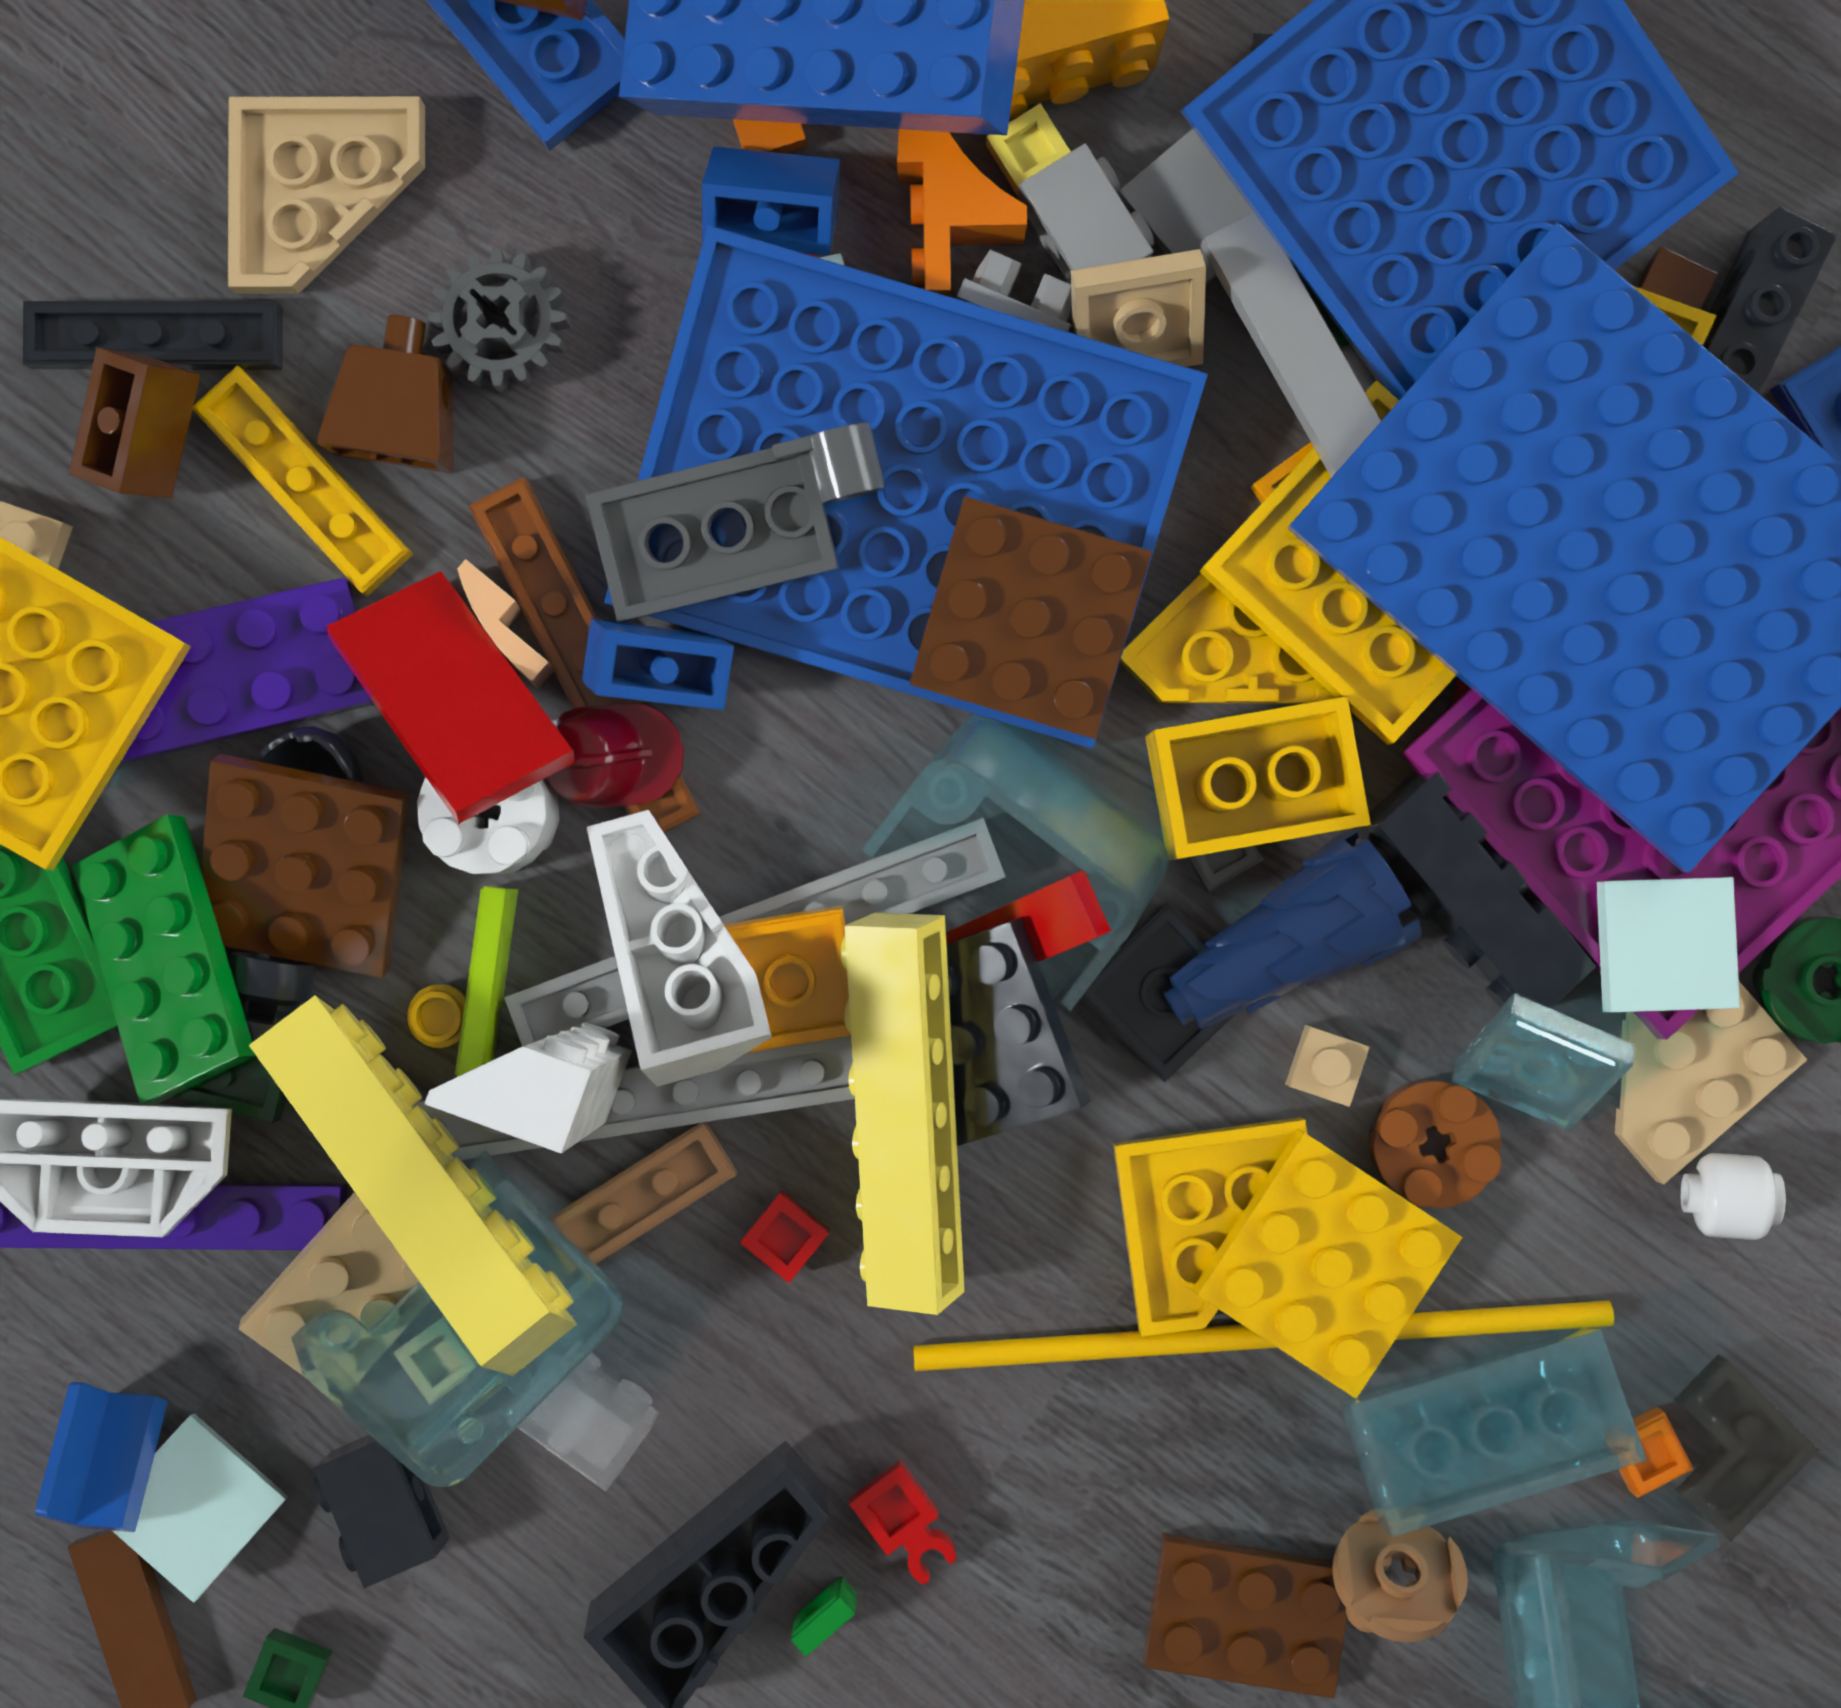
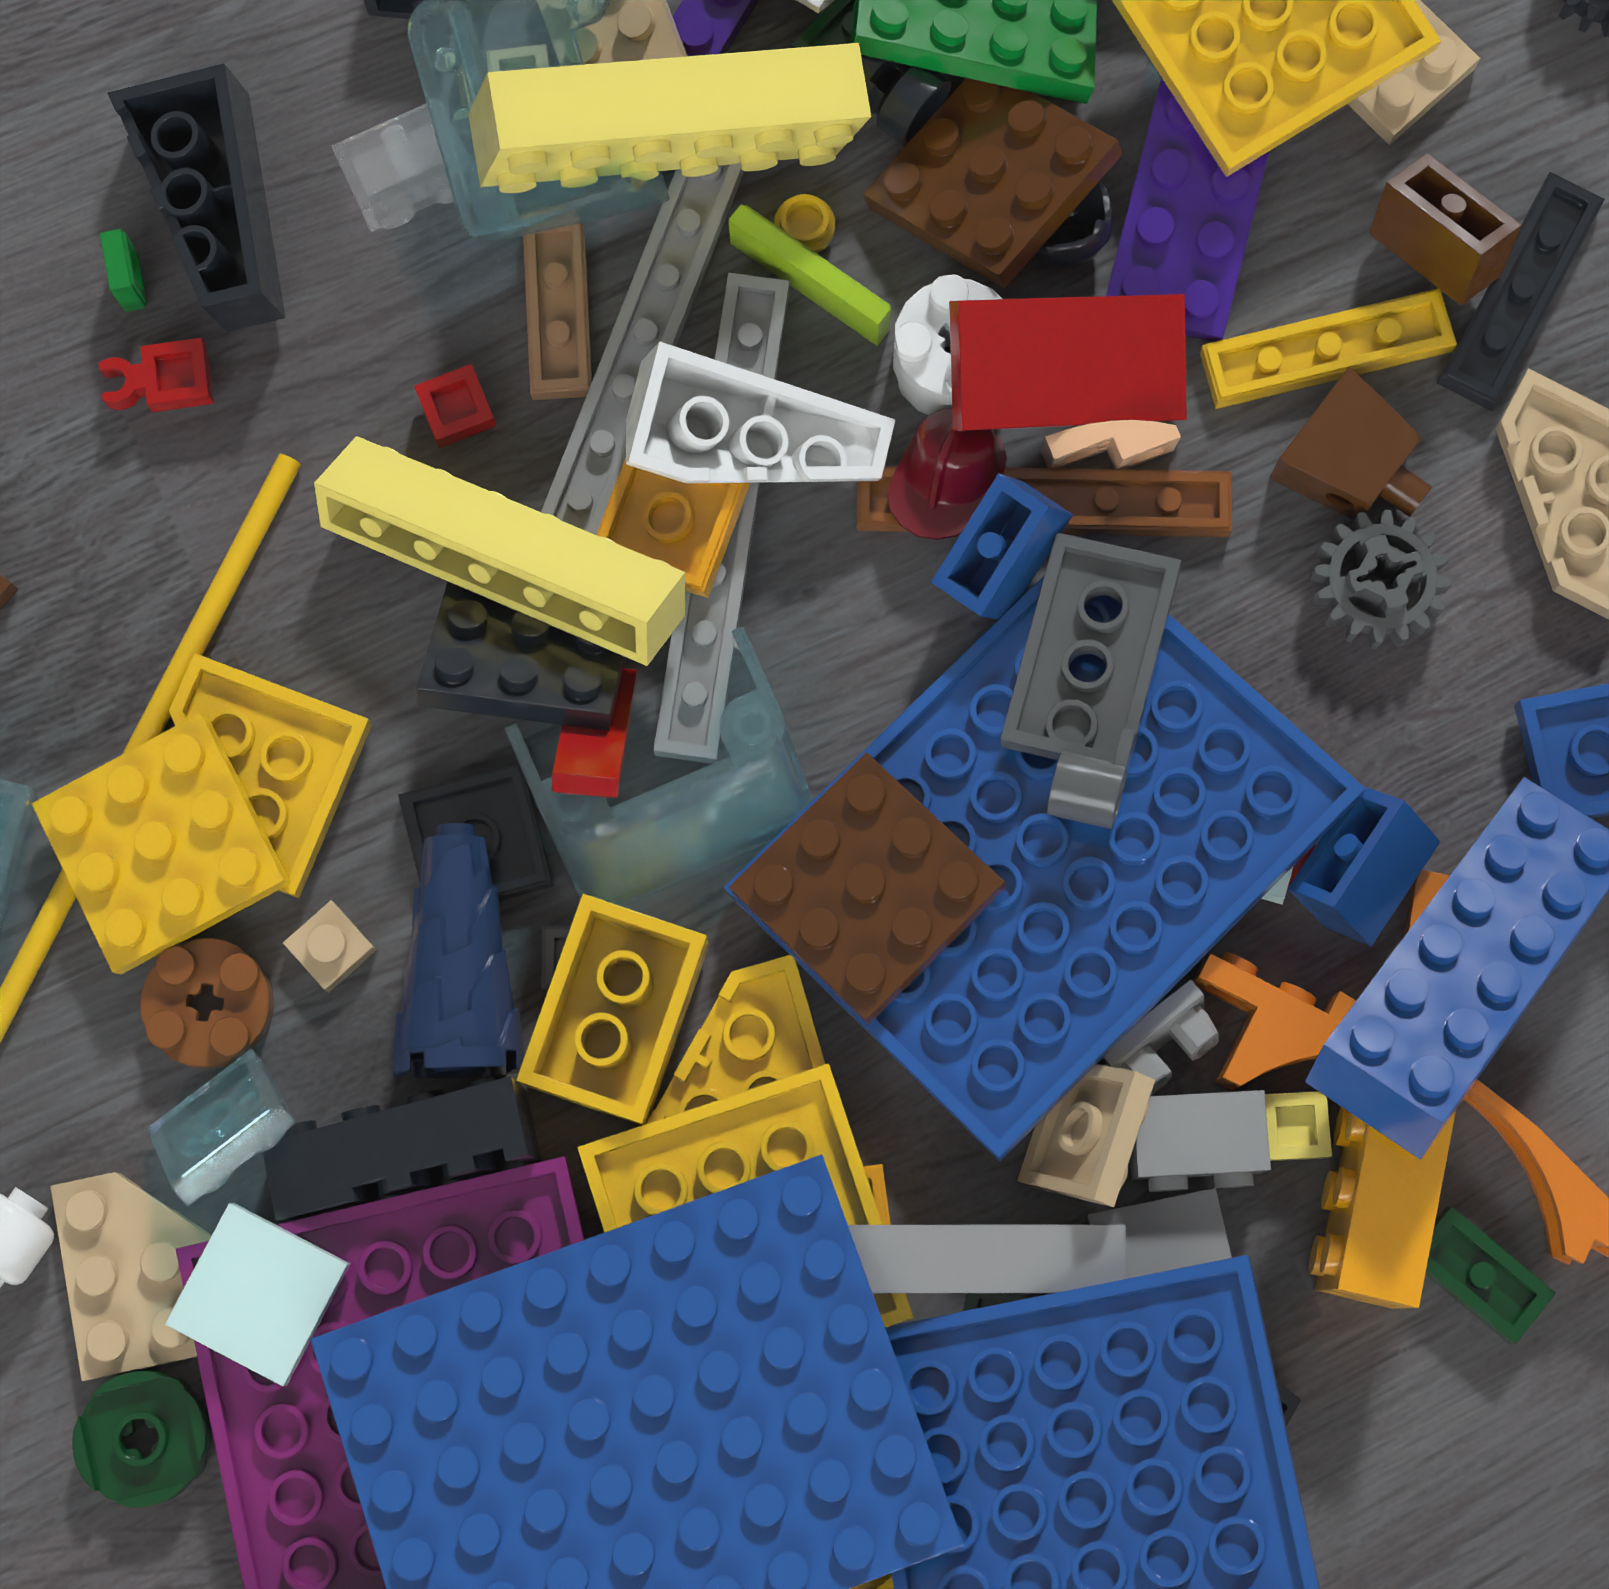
camera: 120 degrees right, 10 degrees down
(544, 1090) = (685, 246): white slope -> none

